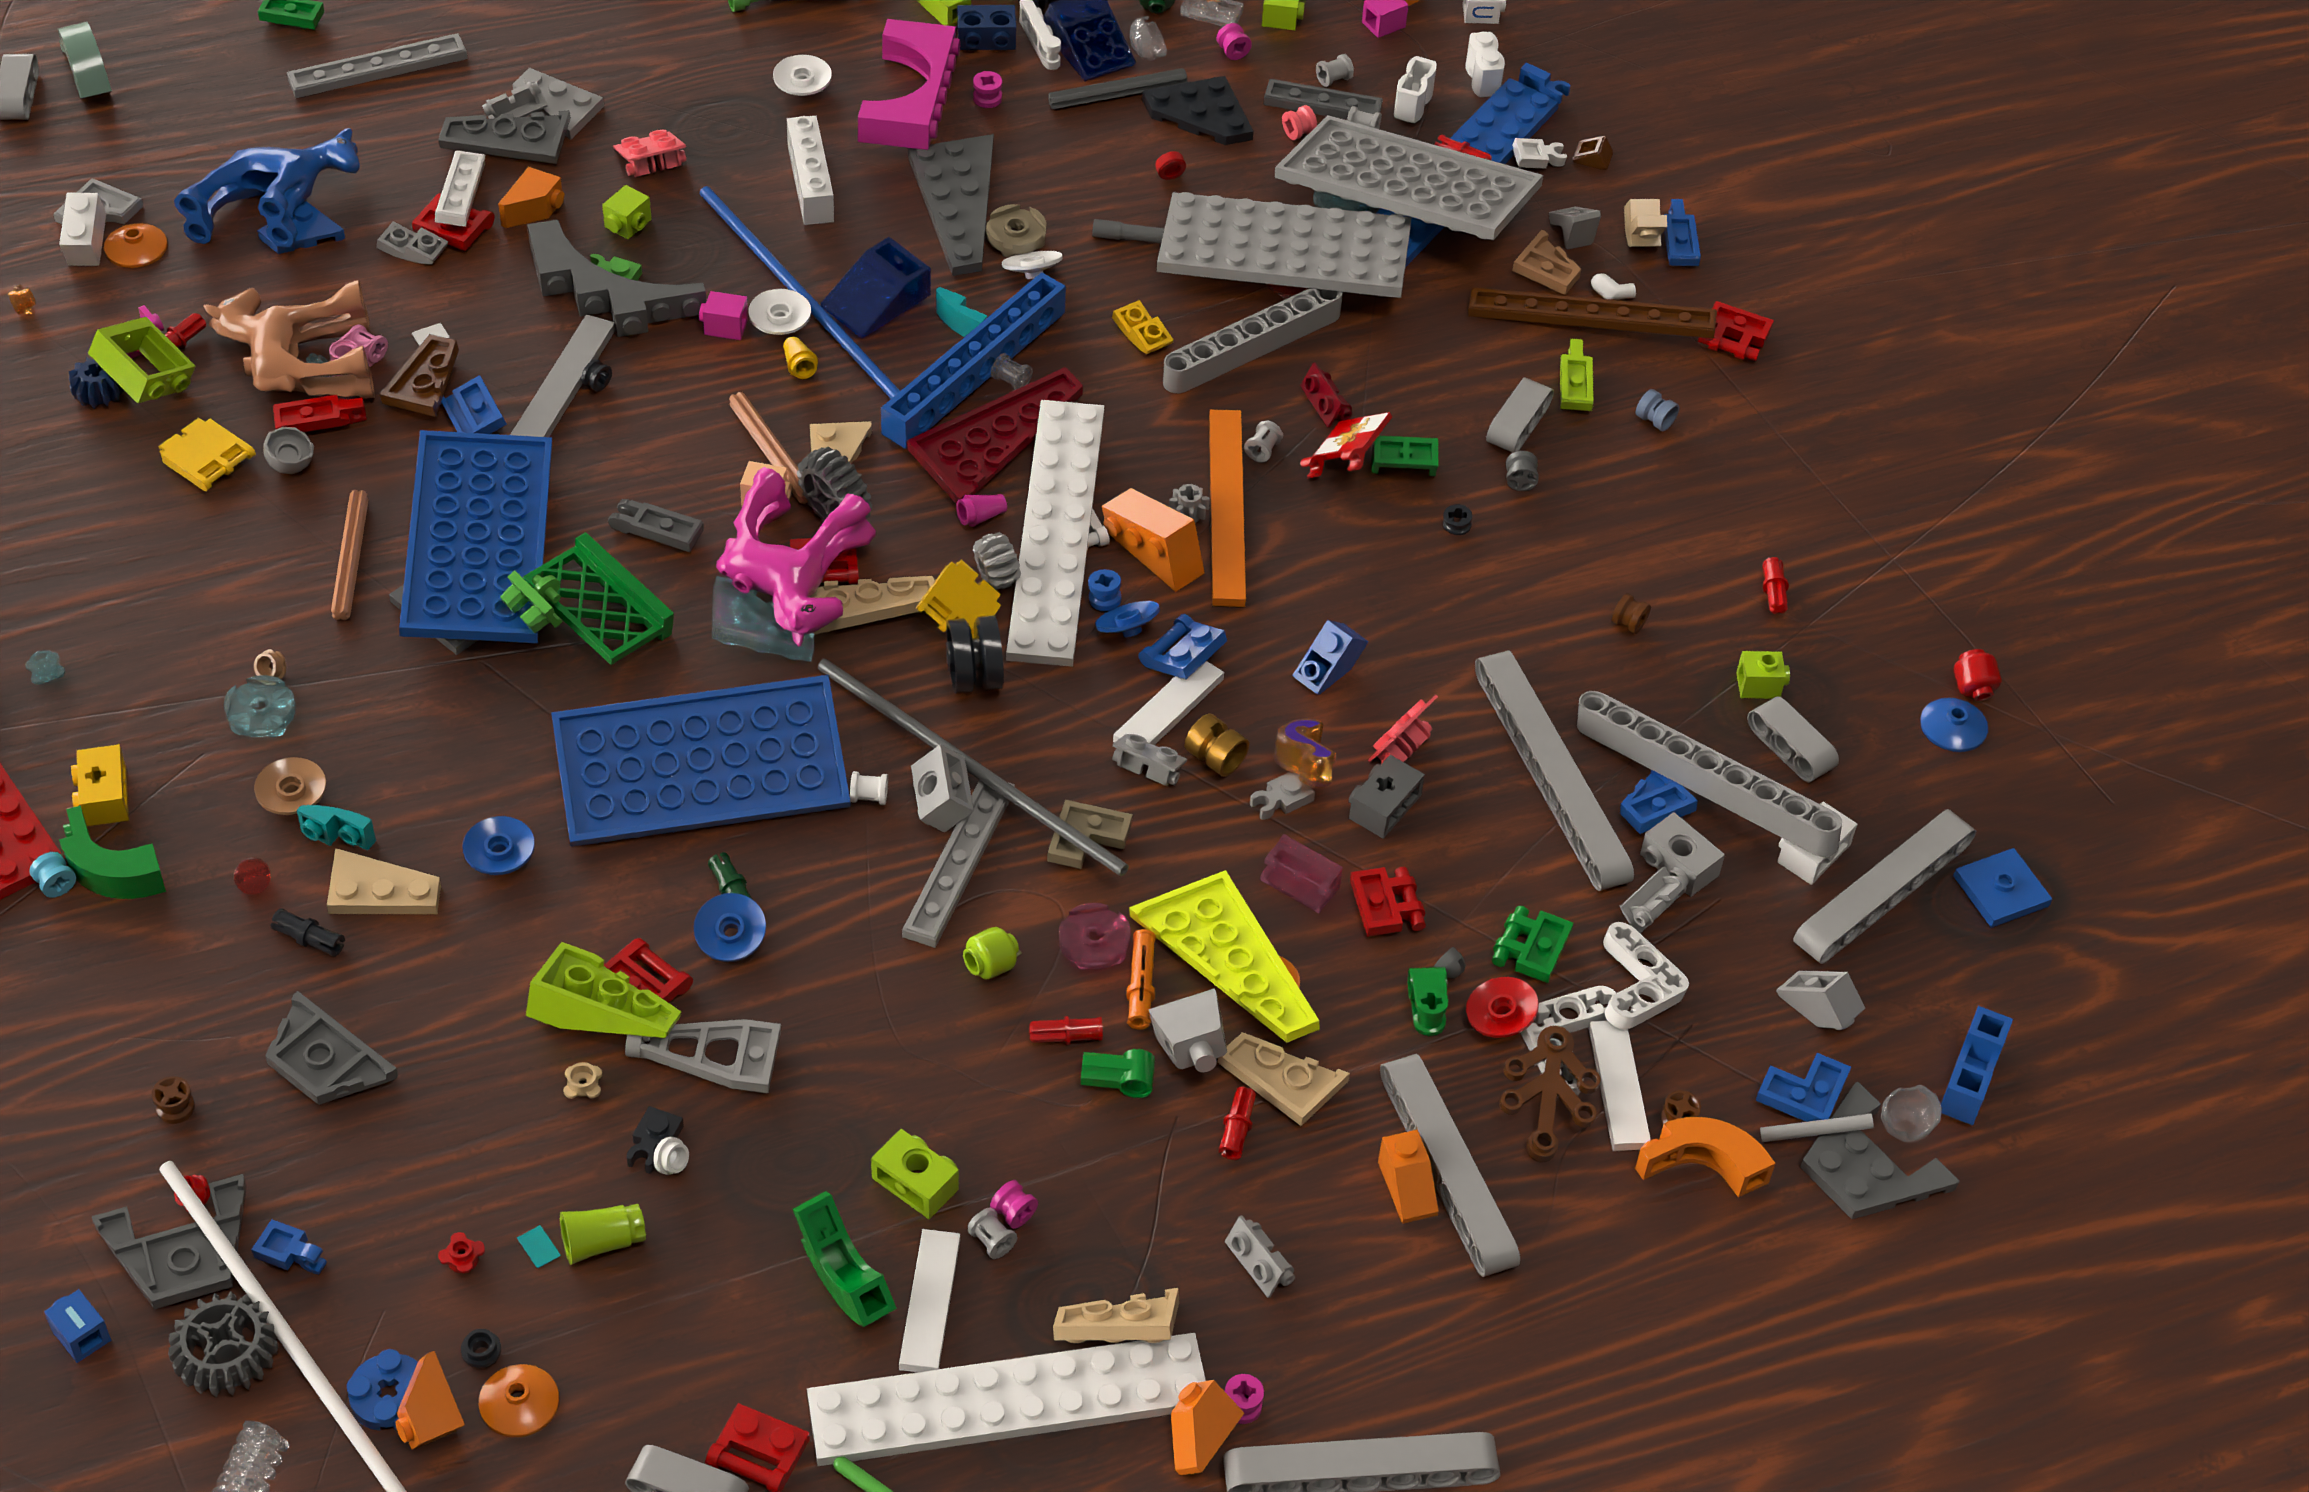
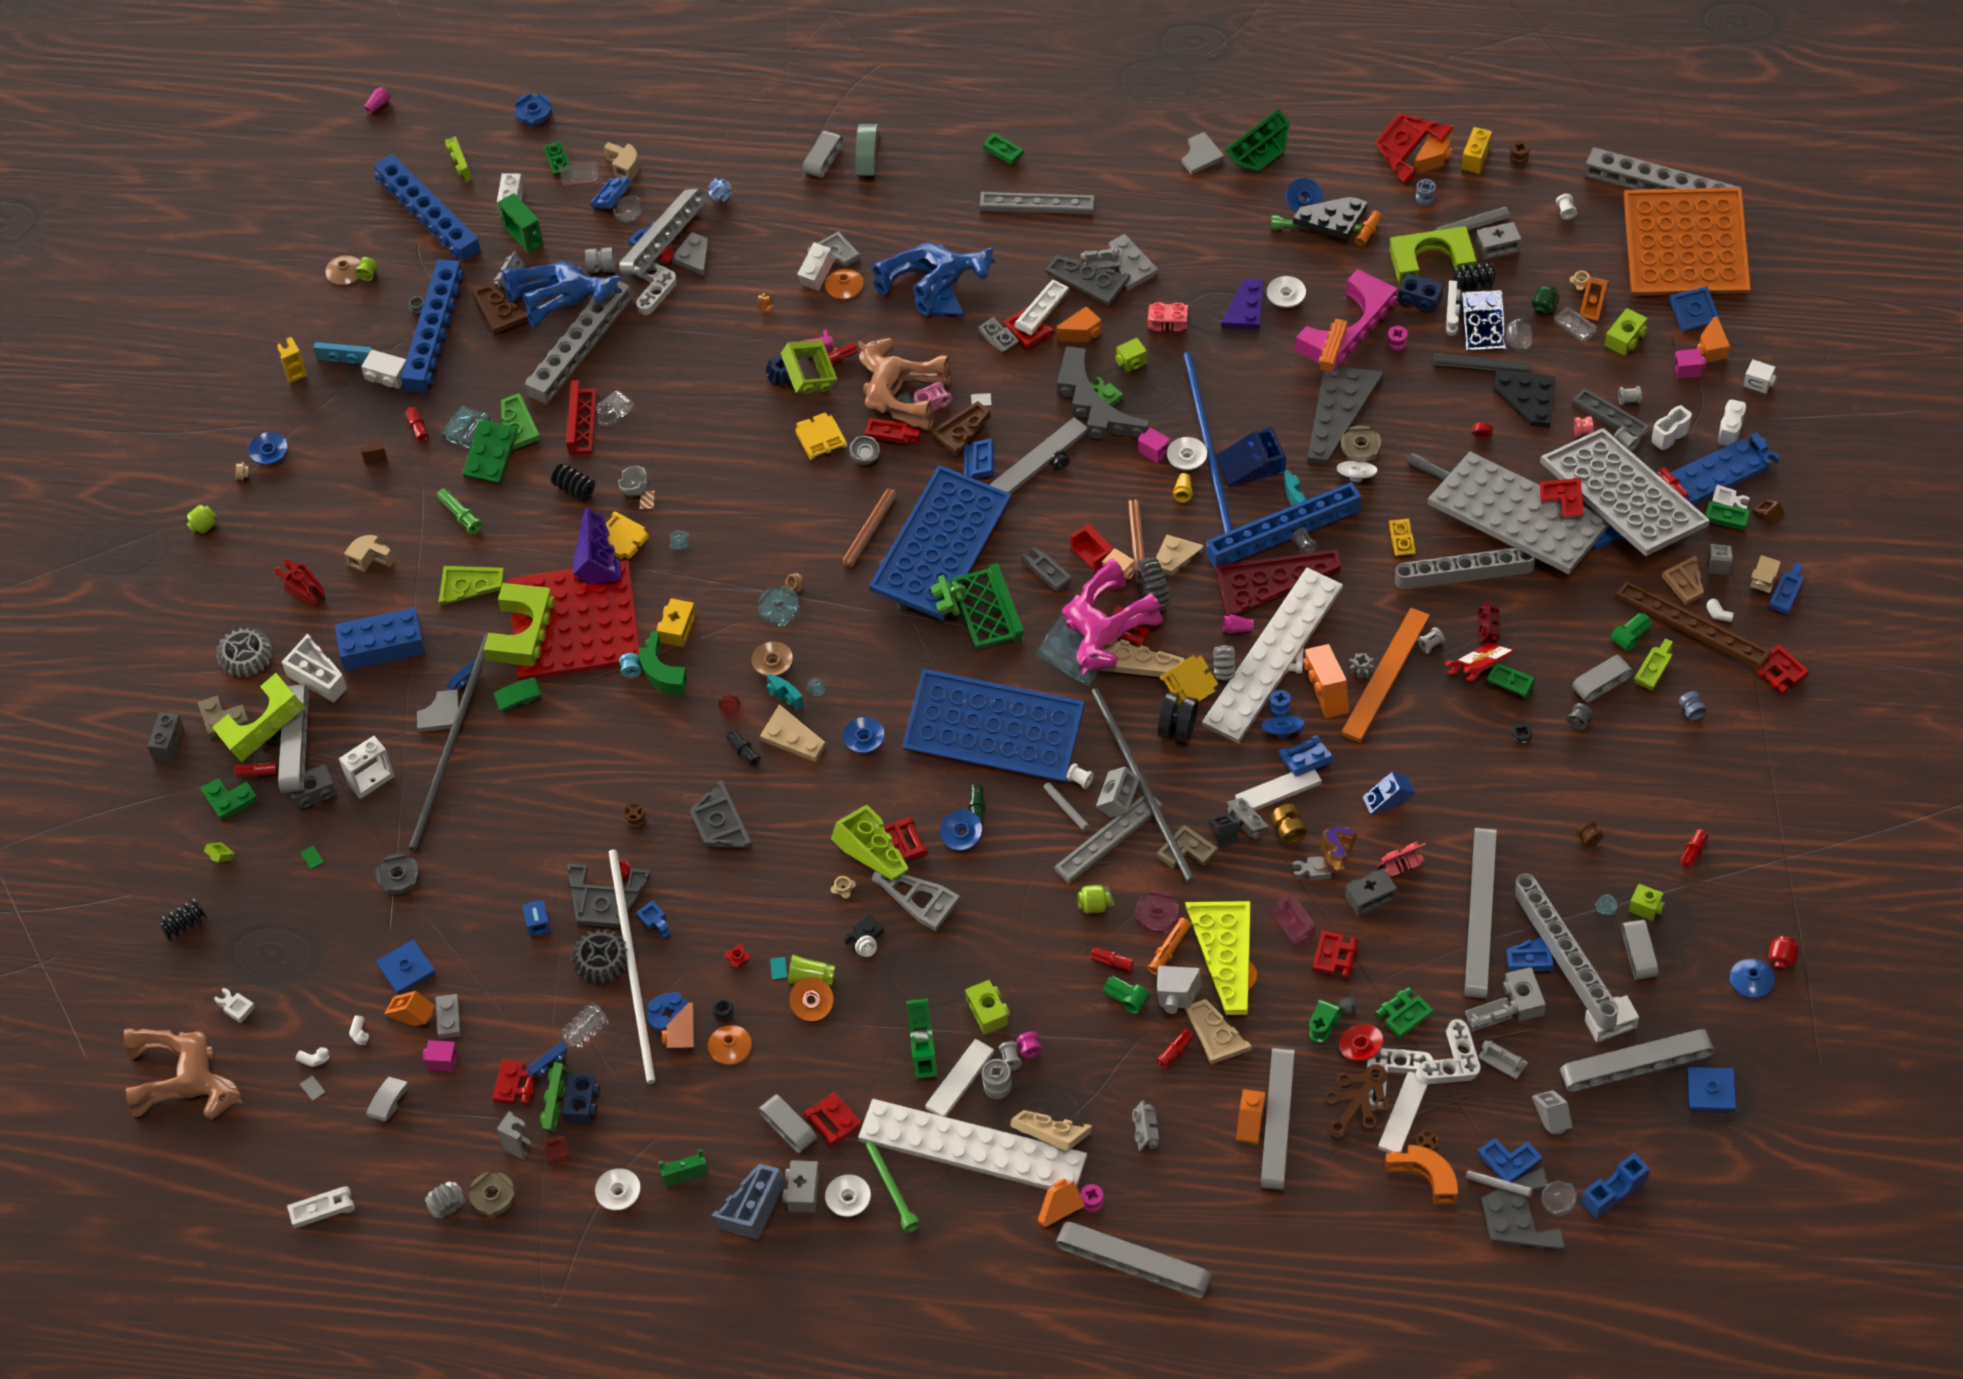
camera: 35 degrees right, 5 degrees up
(383, 803) = (816, 686): none -> clear light blue plate
(635, 1257) = (811, 987): none -> orange dish
(709, 474) = (1090, 547): none -> red panel
(754, 110) = (1245, 306): none -> dark purple wing
(810, 170) = (1255, 361): white brick -> none
(870, 839) = (1066, 806): none -> light grey bar
(916, 110) = (1332, 345): none -> orange piece
(994, 1275) = (996, 1079): none -> light grey wheel
(1127, 785) = (1225, 830): none -> black slope
(1234, 41) = (1575, 353): dark pink wheel -> none
(1342, 195) = (1565, 491): none -> red plate
(1519, 349) = (1628, 635): none -> green piece
(1555, 171) = (1727, 515): none -> green plate
(1707, 956) = (1502, 1059): none -> light grey hinge
(1711, 697) = (1606, 900): none -> clear light blue plate

